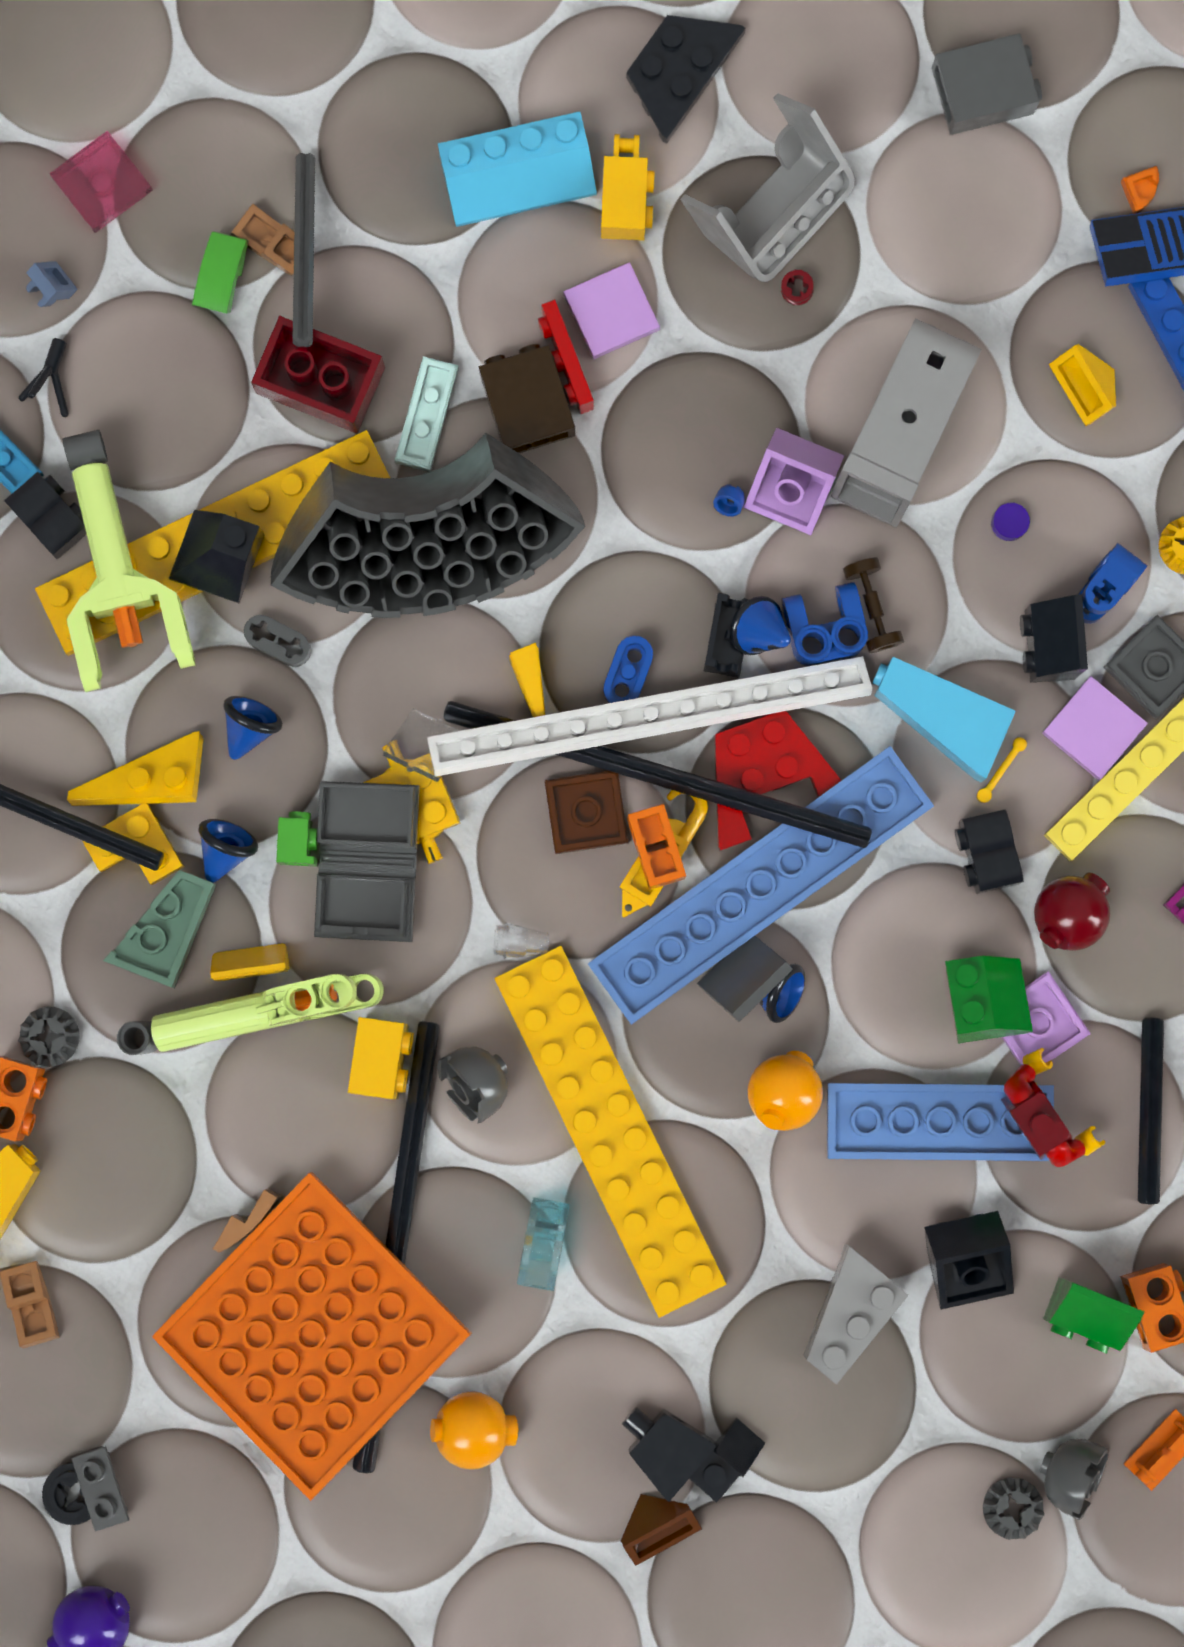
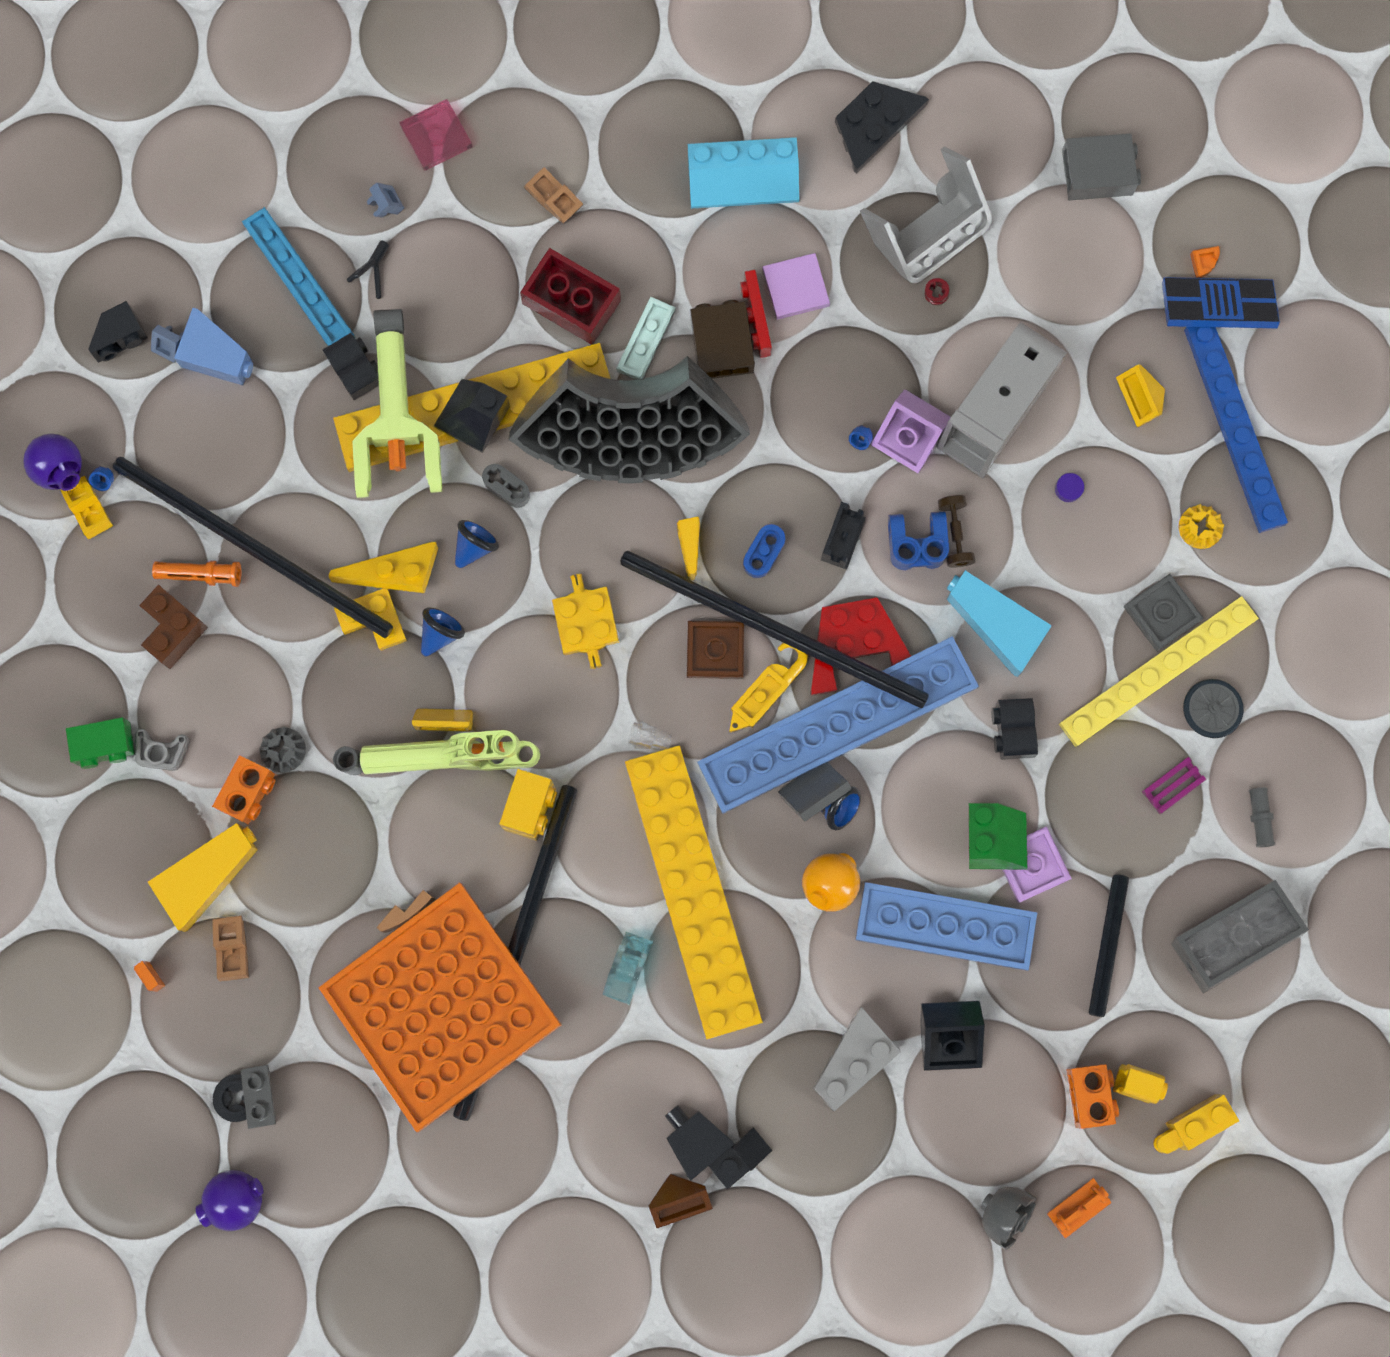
camera: 10 degrees right, 5 degrees down
(165, 933) = (383, 687): sand green wing -> none
(219, 272) = (510, 212): bright green slope -> none
(296, 840) = (494, 634): bright green brick -> none
(304, 250) = (575, 205): dark grey axle -> none
(366, 861) = (544, 658): dark grey piece -> none
(410, 743) = (602, 579): clear piece -> none
(473, 1430) = (550, 1100): light orange brick -> none
(476, 1081) = (598, 835): dark grey cylinder -> none
(625, 192) = (820, 201): yellow brick -> none
(648, 716) = (774, 584): white plate -> none
(656, 846) = (763, 680): orange brick -> none
(759, 627) = (867, 532): blue hat -> none
(984, 795) = (1018, 686): yellow hinge -> none
(997, 1501) = (944, 1225): dark grey gear -> none
(1039, 1119) = (1022, 935): torso -> none
(1054, 639) = (1089, 578): black slope -> none
(1073, 912) = (1072, 783): dark red brick -> none
(1091, 1315) = (1039, 1092): green slope -> none
(1094, 728) = (1109, 650): lavender tile -> none
(1110, 582) = (1135, 543): blue piece -> none

